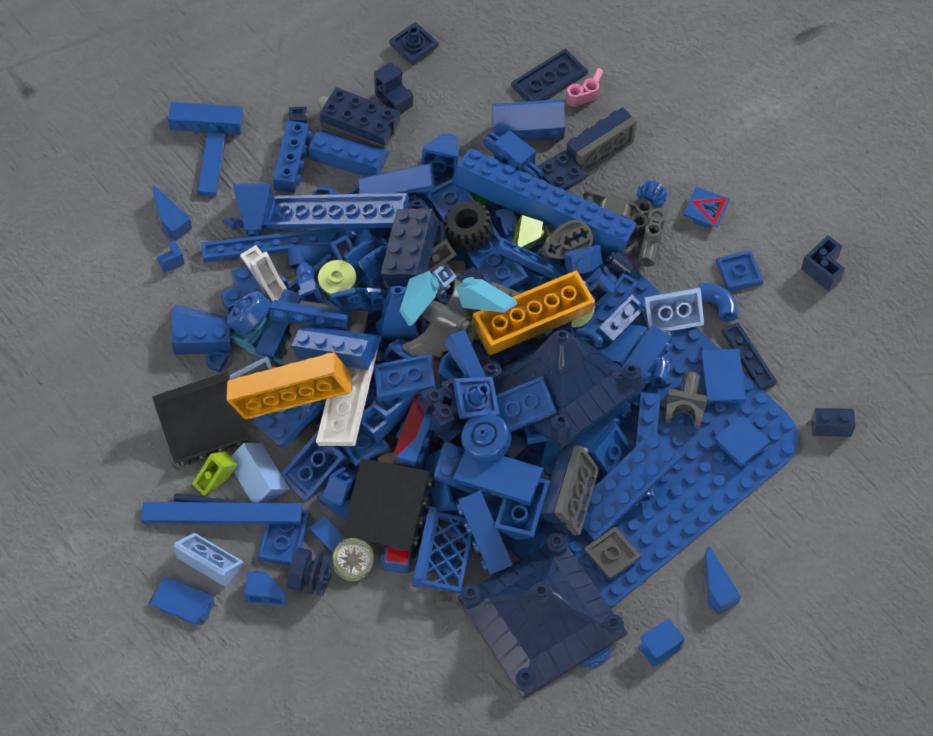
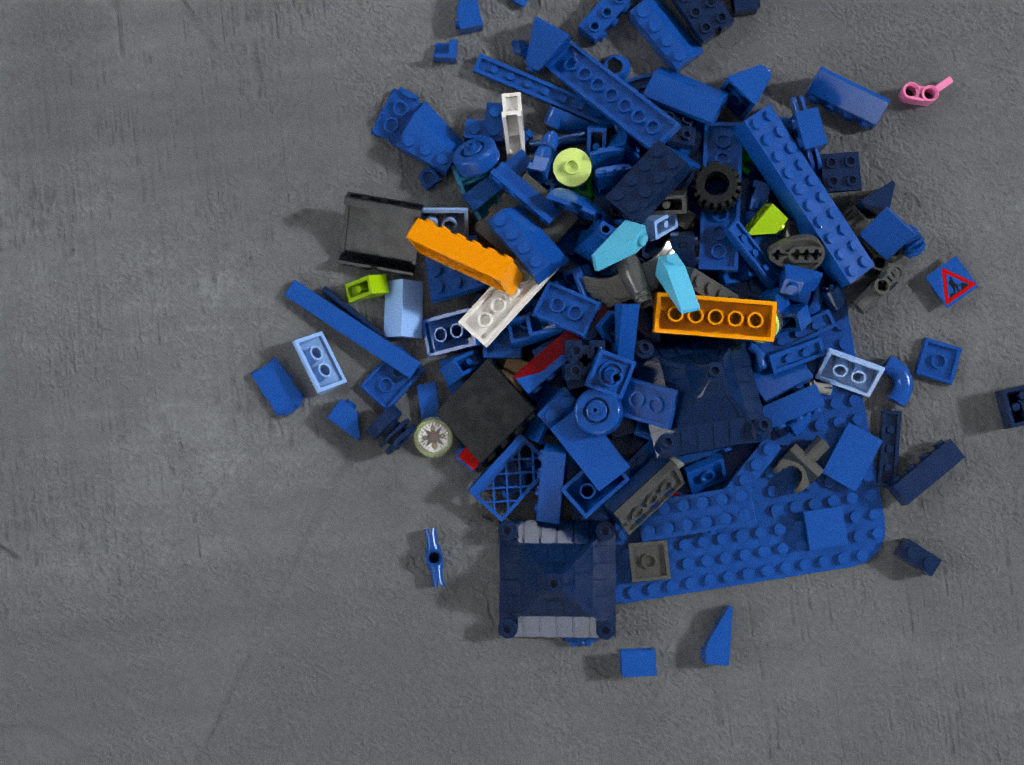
camera: 35 degrees right, 25 degrees up
(156, 327) = (396, 115): none -> blue piece
(426, 668) = (436, 568): none -> blue pin
(549, 77) = (899, 58): dark blue tile -> none
(602, 140) = (901, 159): piece -> none
(605, 177) = (877, 201): none -> dark blue slope
(629, 192) = (887, 233): none -> blue tile
(790, 354) = (925, 472): none -> dark blue brick

